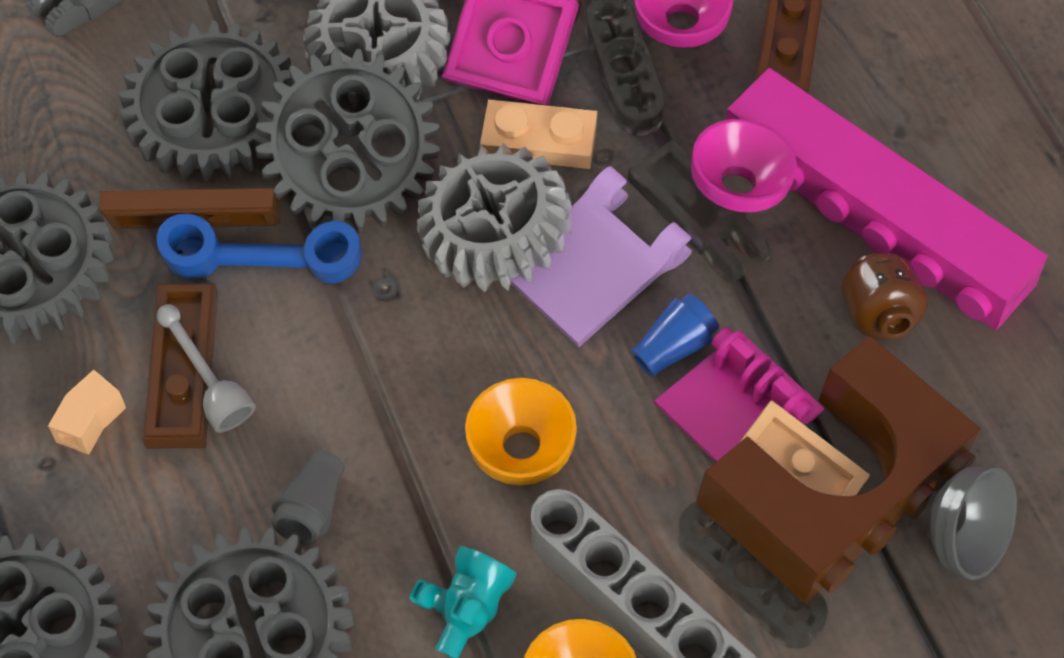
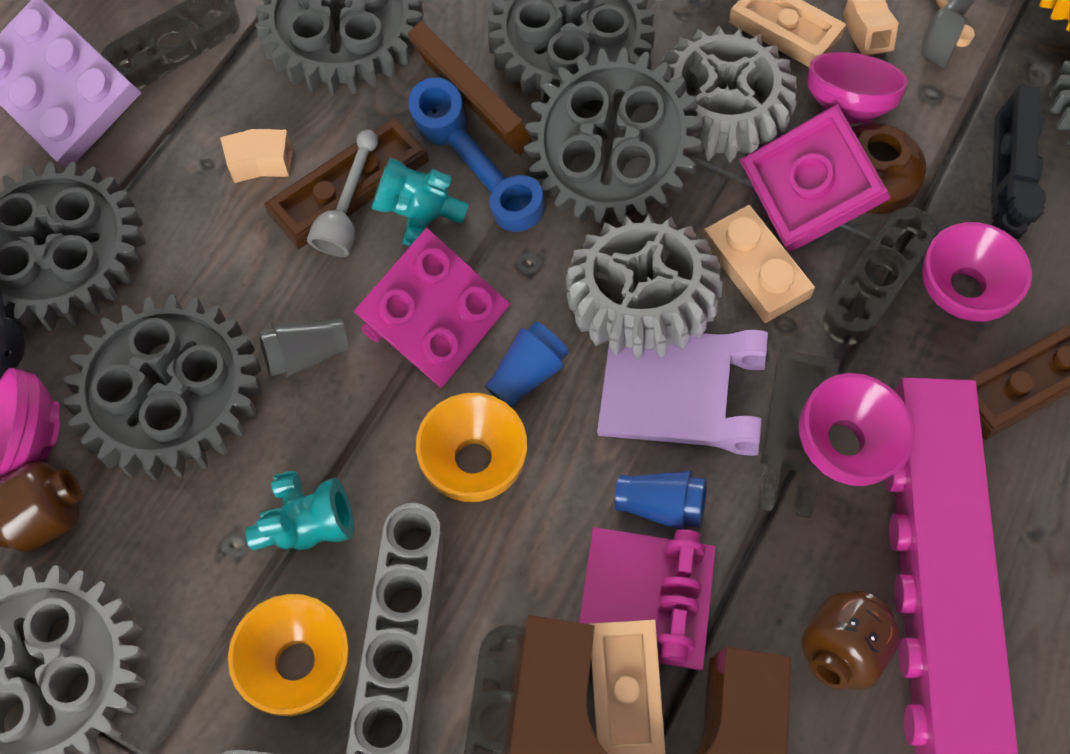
camera: 50 degrees right, 5 degrees up
(256, 320) = (417, 197): none -> teal piece
(367, 380) = (431, 308): none -> dark pink hinge
(480, 344) = (527, 363): none -> blue cone

